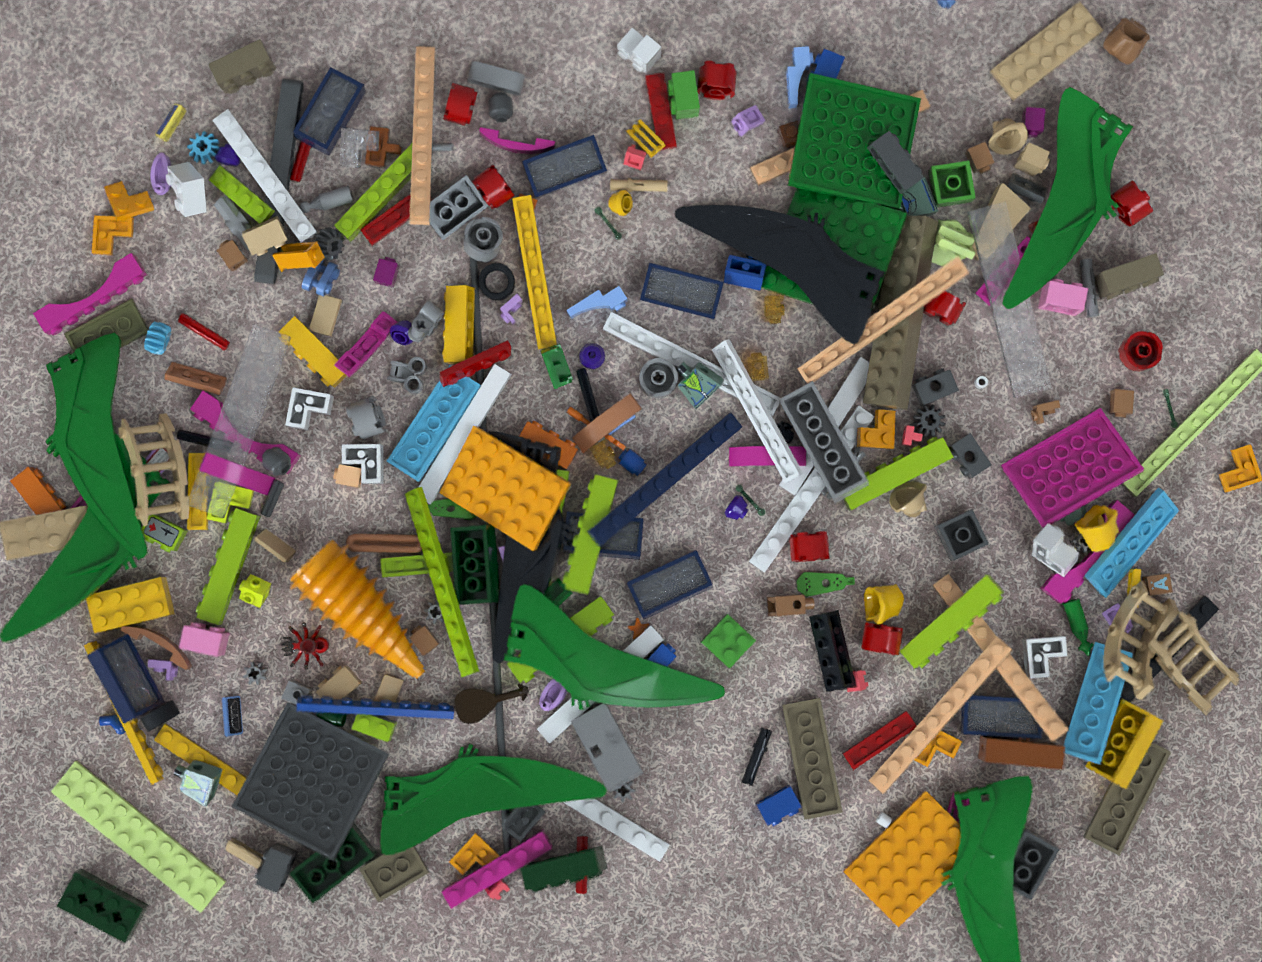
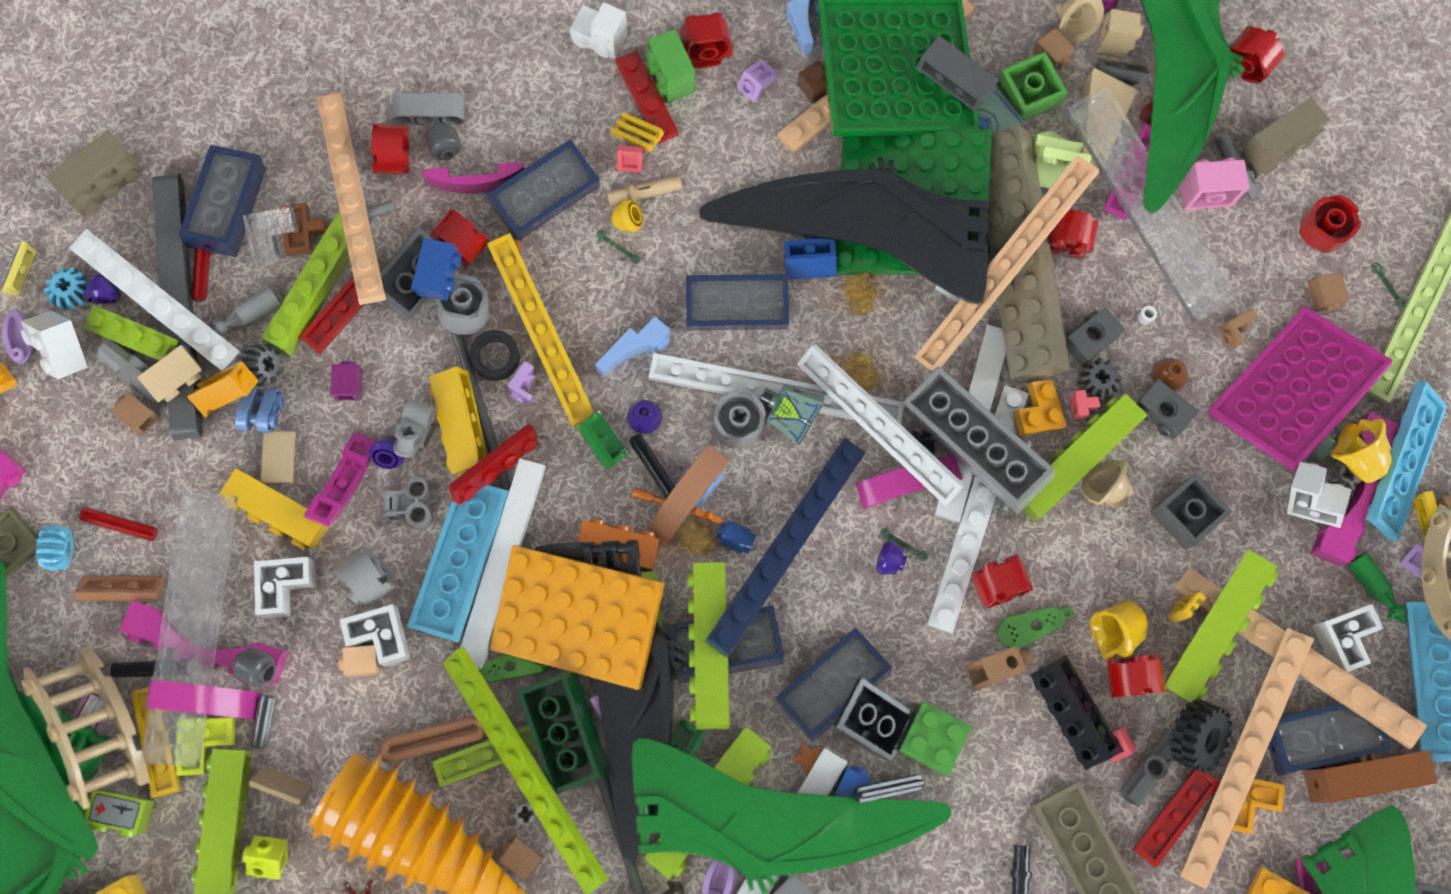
camera: 20 degrees left, 10 degrees down
(470, 212) = (436, 269): none -> blue brick
(686, 665) = (888, 788): none -> axle
(689, 617) = (874, 720): none -> black slope
(864, 711) = (1142, 781): none -> dark grey piece
(912, 691) = (1200, 735): none -> black tyre
(933, 601) = (1188, 603): none -> yellow tile
(983, 430) = (1171, 372): none -> dark orange brick

